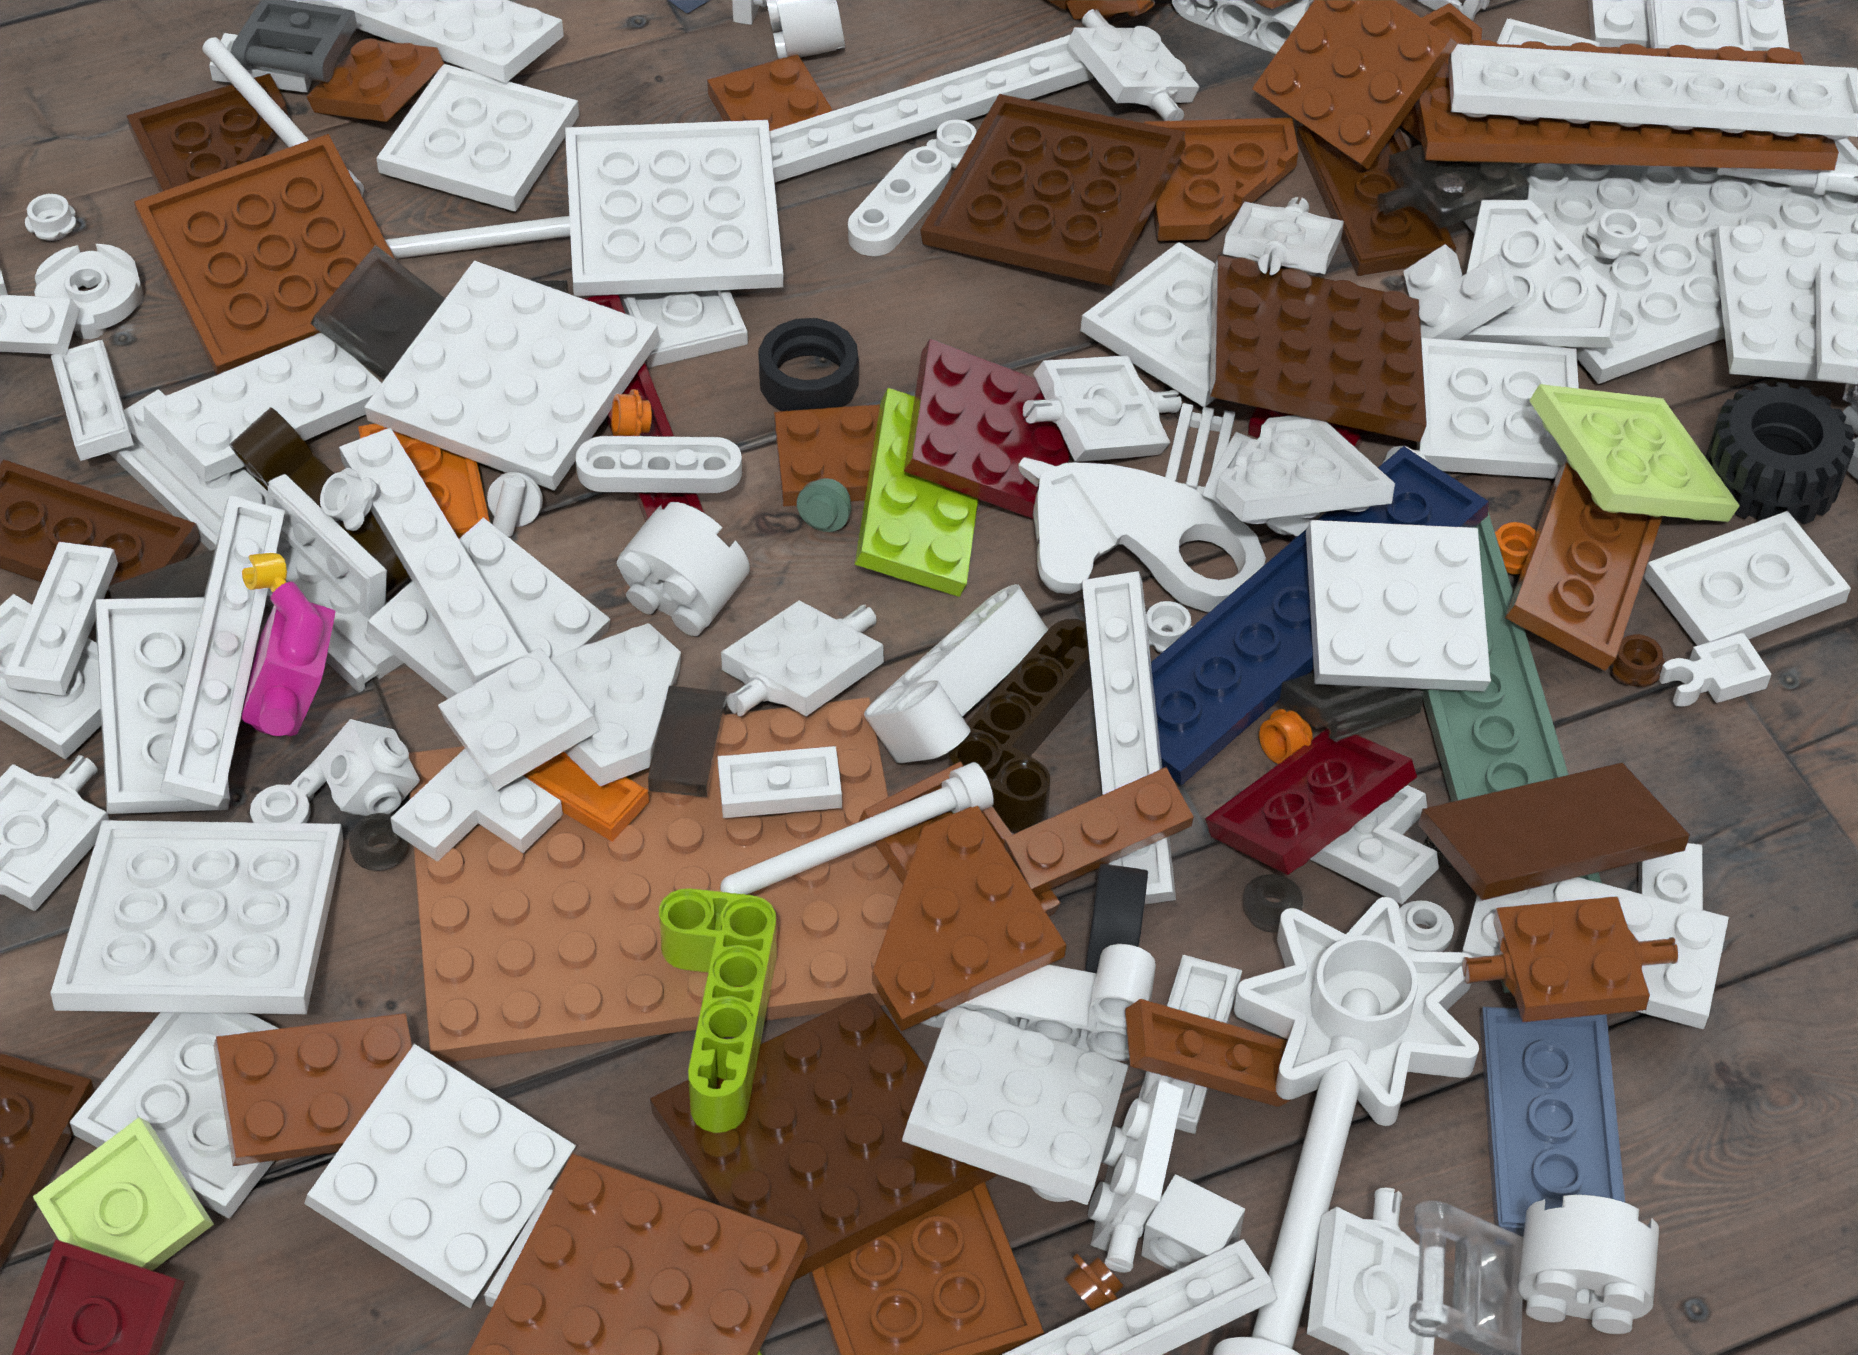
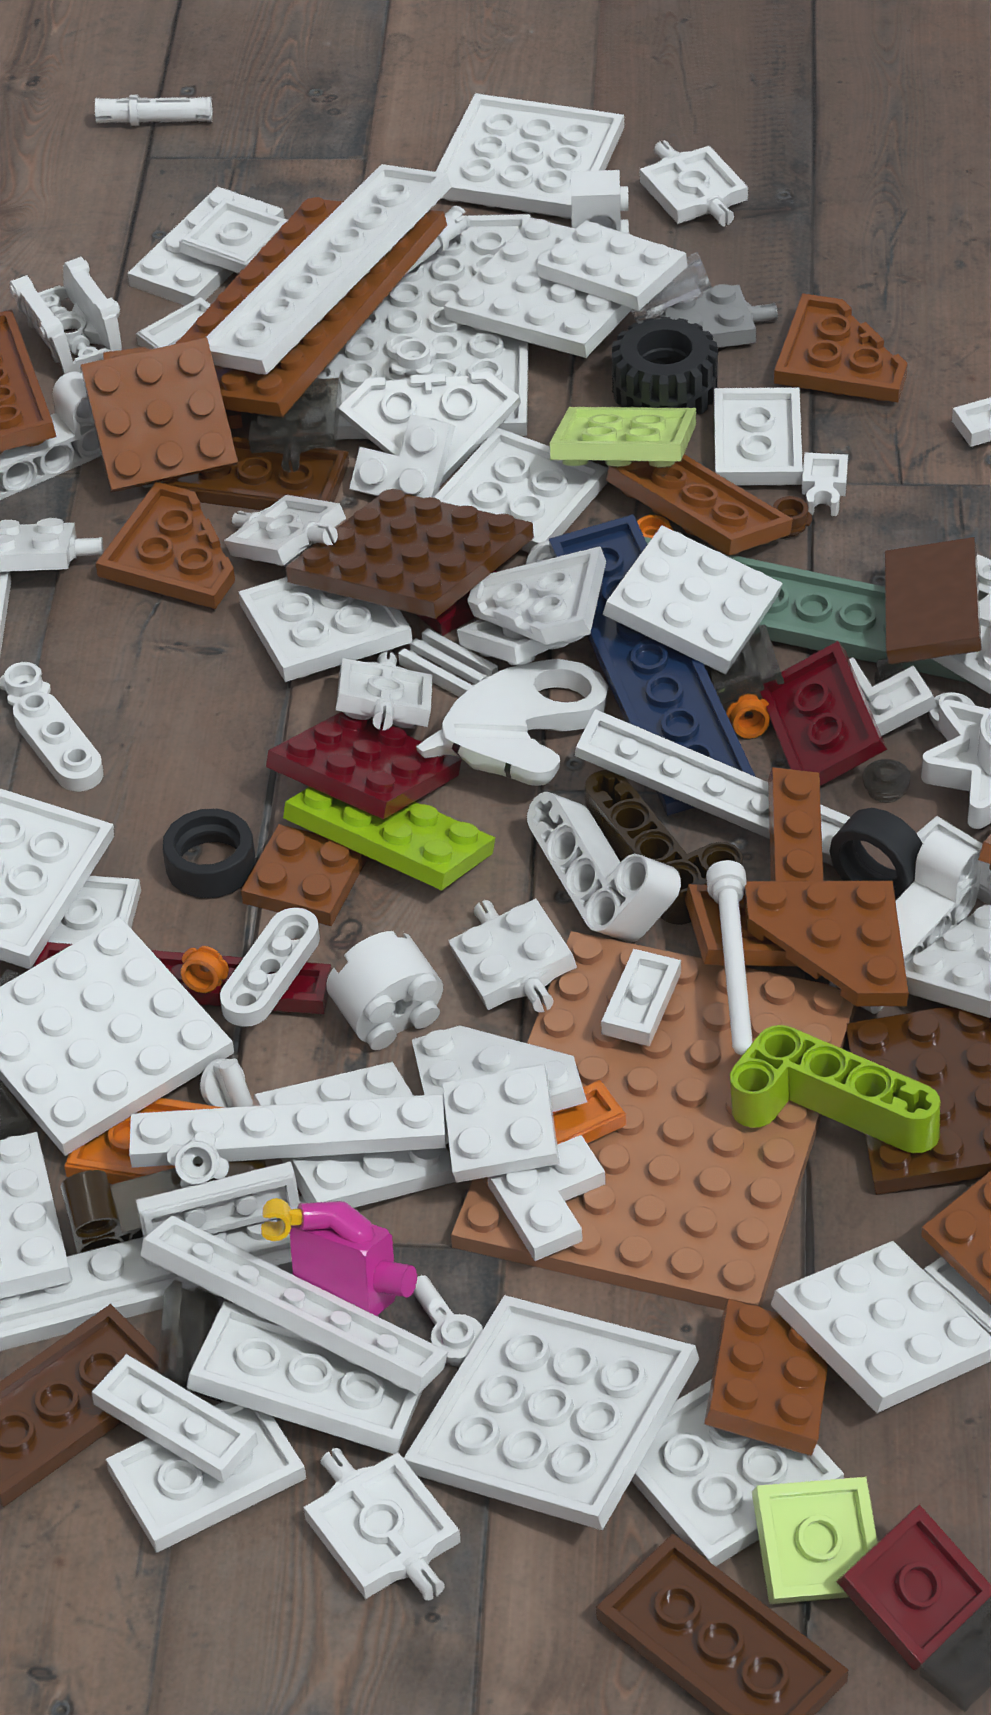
camera: 60 degrees left, 5 degrees down
(367, 769) = (452, 1271): white brick -> none
(372, 831) = (526, 1270): clear smoke plate -> none
(687, 741) = (560, 1033): clear smoke tile -> none
(824, 505) = (362, 891): sand green plate -> none
(1054, 189) = (132, 638): reddish brown plate -> none

